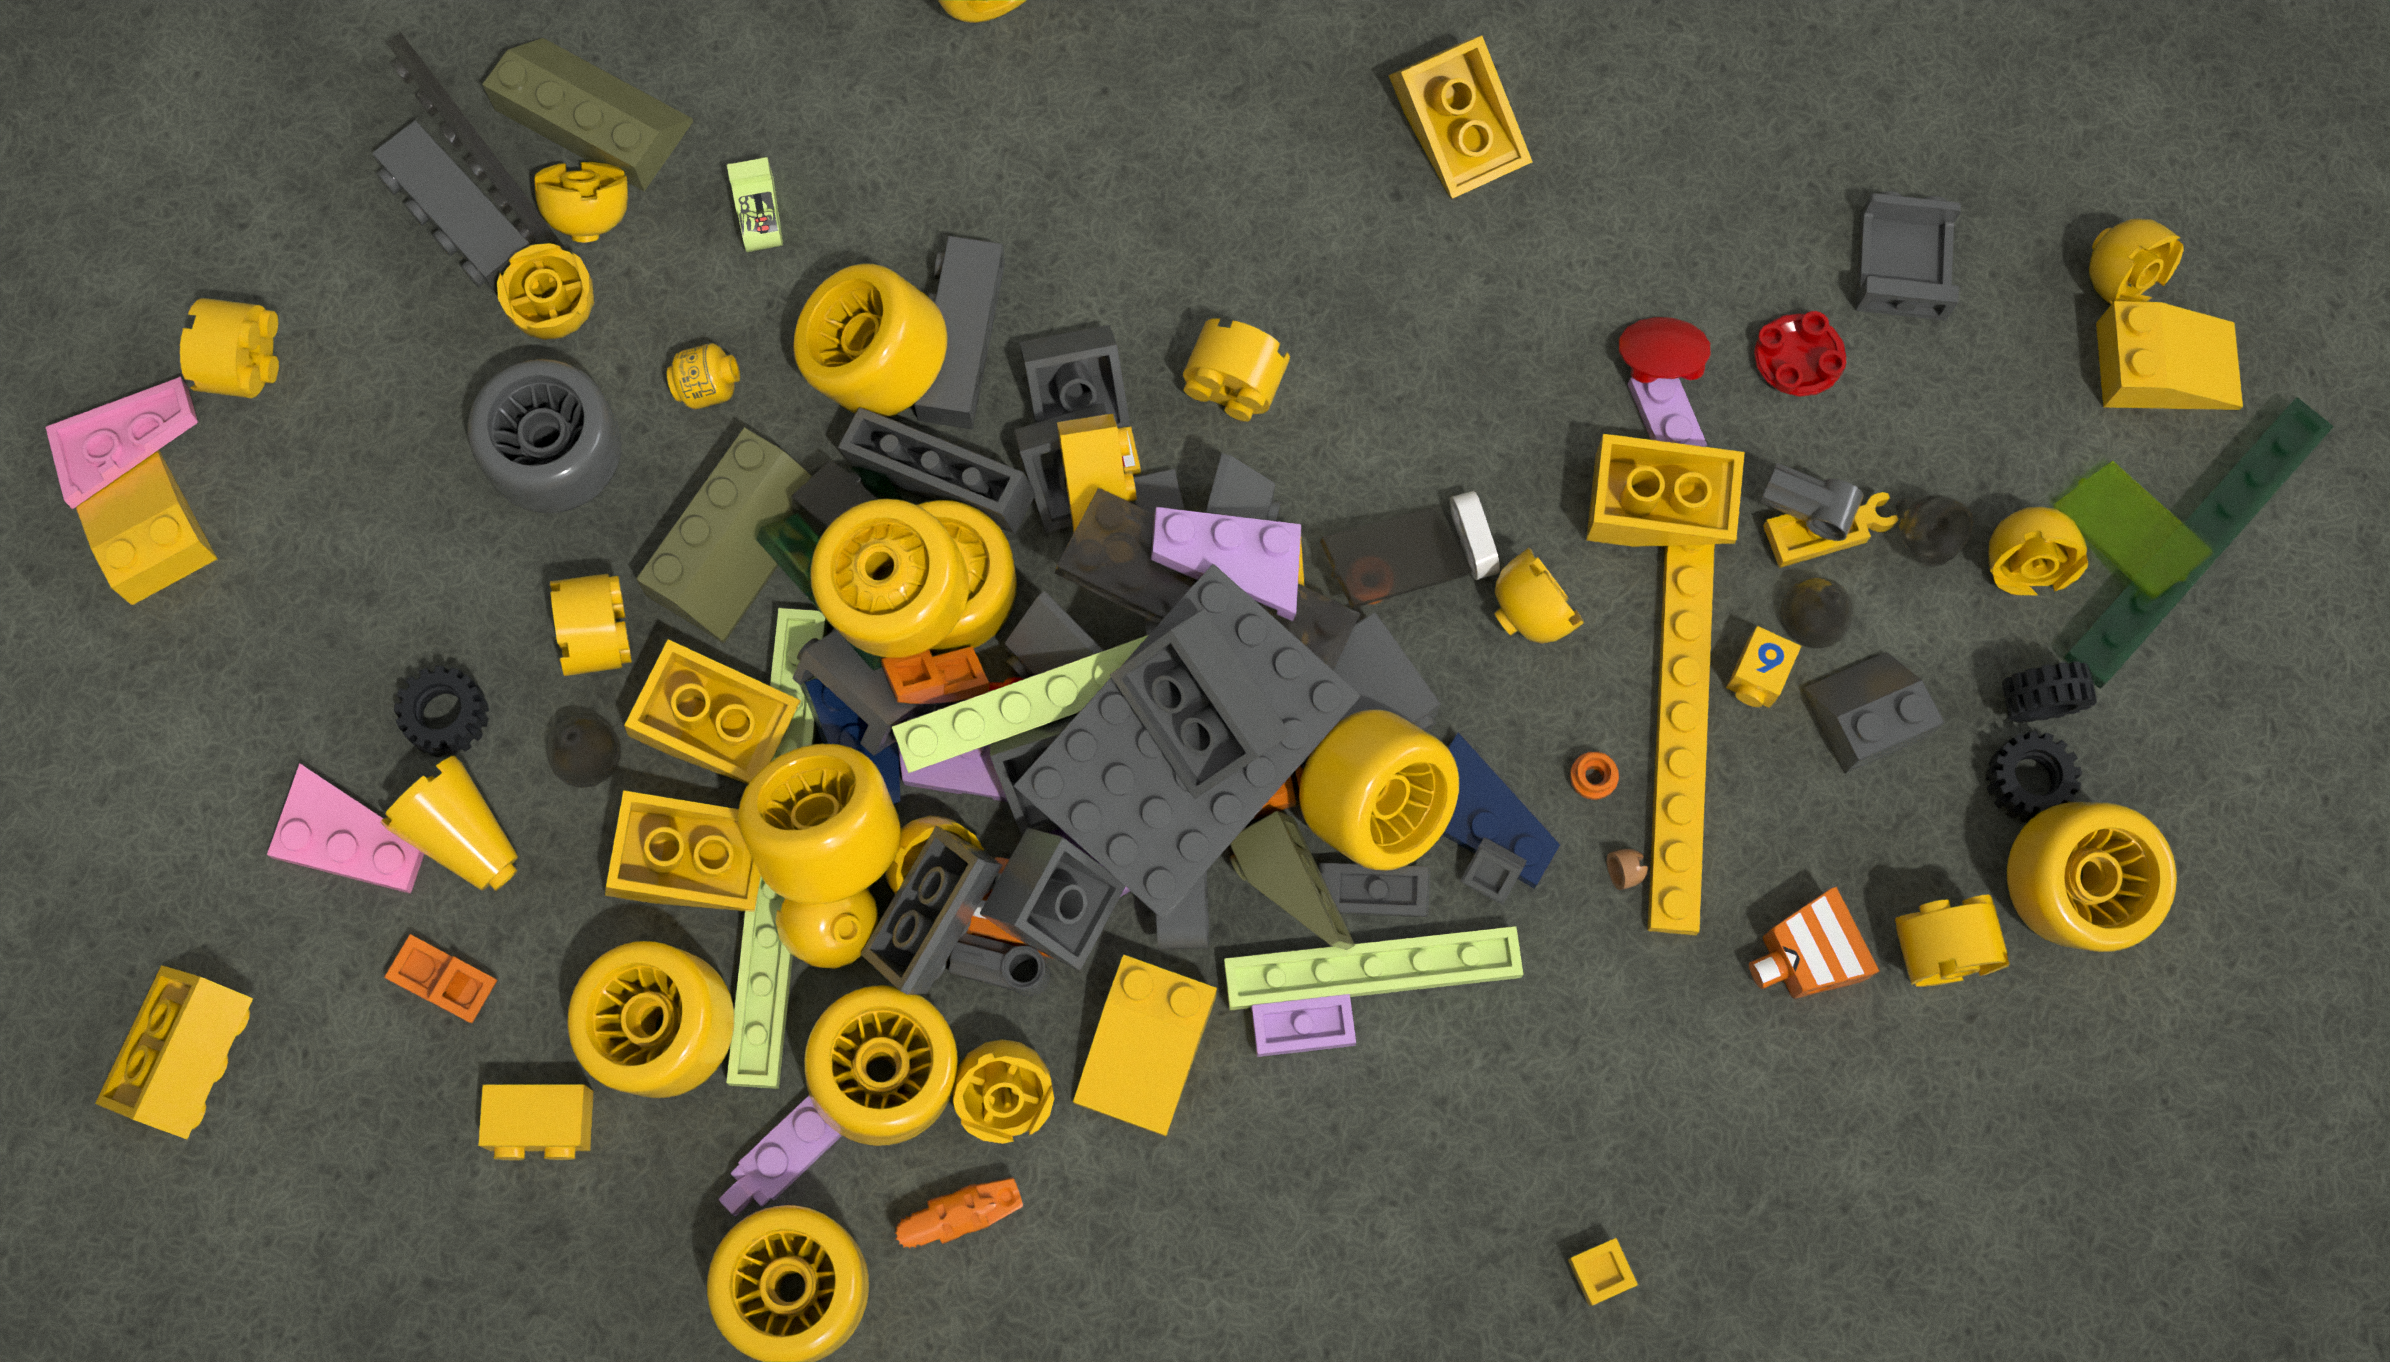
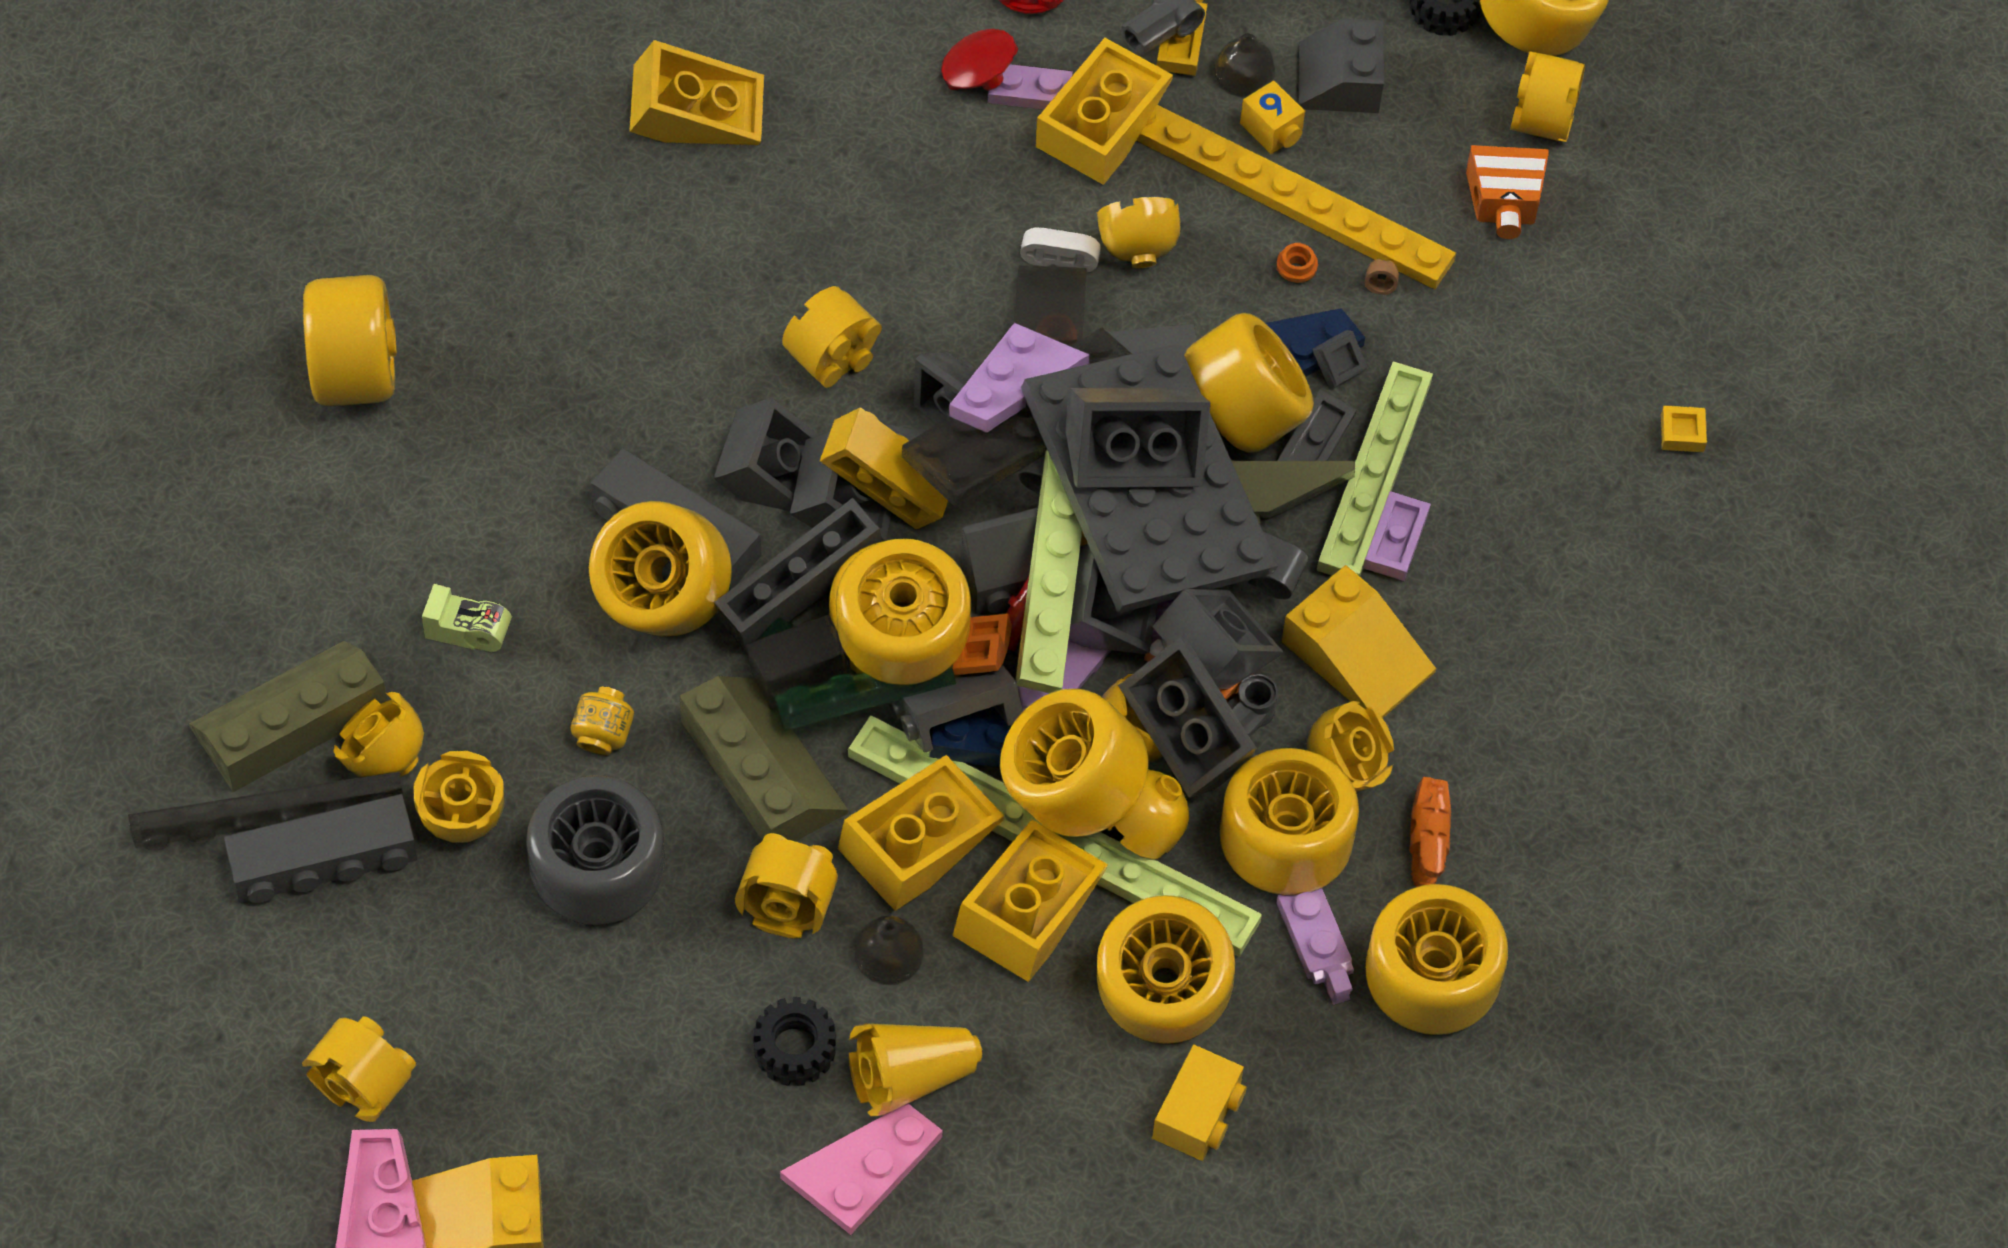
camera: 65 degrees left, 15 degrees down
(441, 979) = (1036, 1137): orange slope -> none

